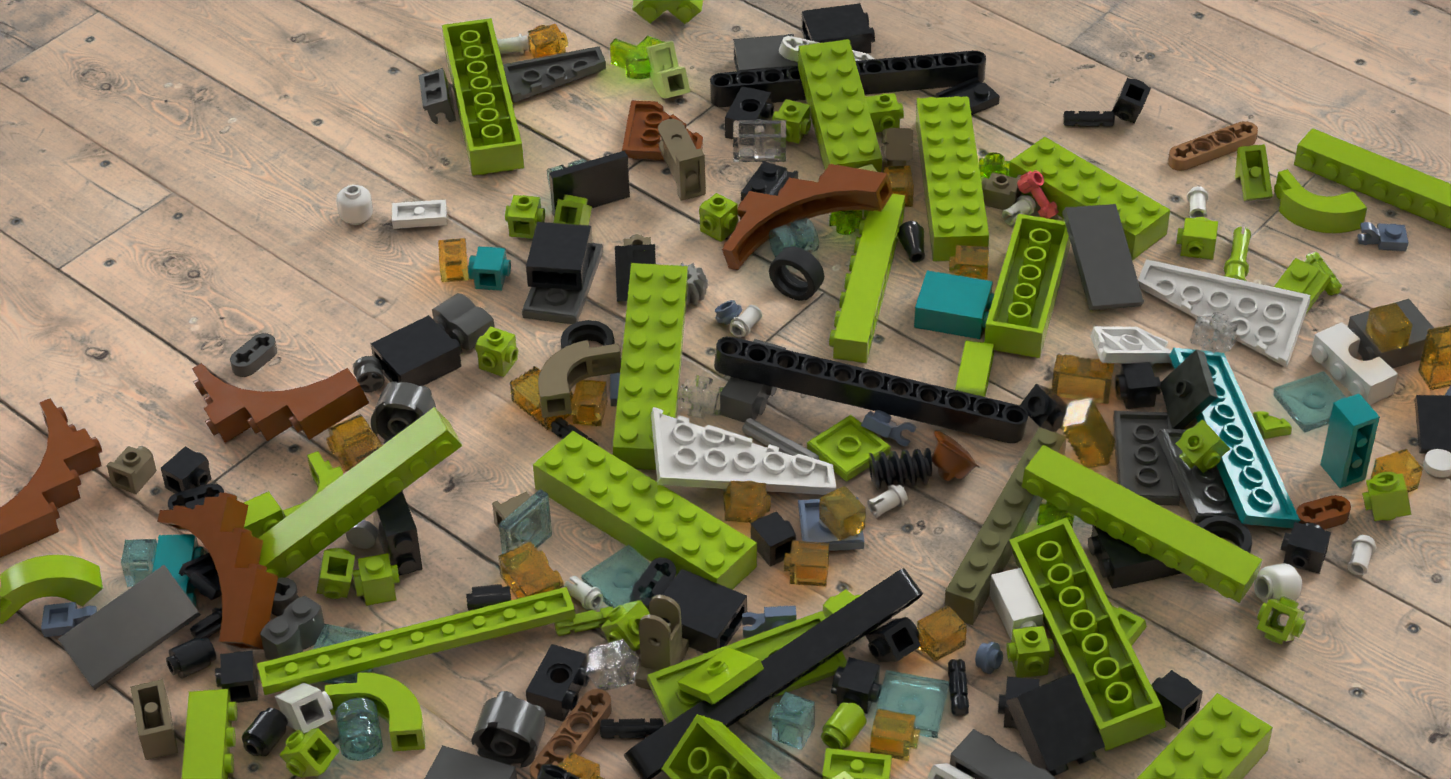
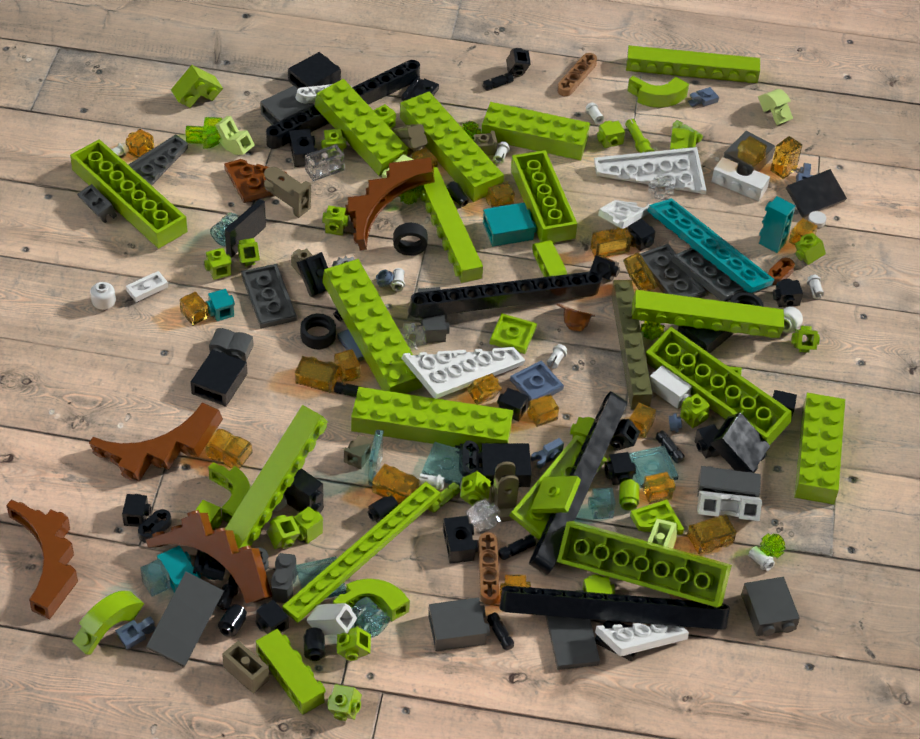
camera: 35 degrees left, 5 degrees up
(136, 465) = (97, 518): dark tan brick -> none
(253, 355) = (109, 417): dark grey beam -> none
(369, 373) = (197, 397): dark grey wheel -> none
(399, 407) = (246, 417): dark grey brick -> none
(496, 351) = (268, 355): lime brick -> none
(509, 730) = (459, 578): dark grey brick -> none
(559, 256) = (262, 281): black brick -> none
(568, 368) = (330, 364): dark tan arch -> none
(768, 179) = (344, 187): black plate -> none
(769, 436) = (469, 345): light grey axle -> none
(798, 234) = (390, 218): clear light blue wheel -> none
(842, 513) = (546, 373): clear yellow brick -> none
(881, 424) = (523, 312): sand blue plate -> none
(901, 469) = (552, 334): black piece -> none
(1031, 183) = (504, 133): coral bar -> none
(1102, 257) = (573, 164): dark grey tile -> none
(1188, 390) = (675, 227): pearl dark grey plate -> none
(1201, 447) = (709, 252): lime brick -> none
(1253, 172) = (614, 82): lime slope -> none
(1271, 426) = (722, 231): lime tile -> none
(1309, 400) = (732, 208): clear light blue tile -> none

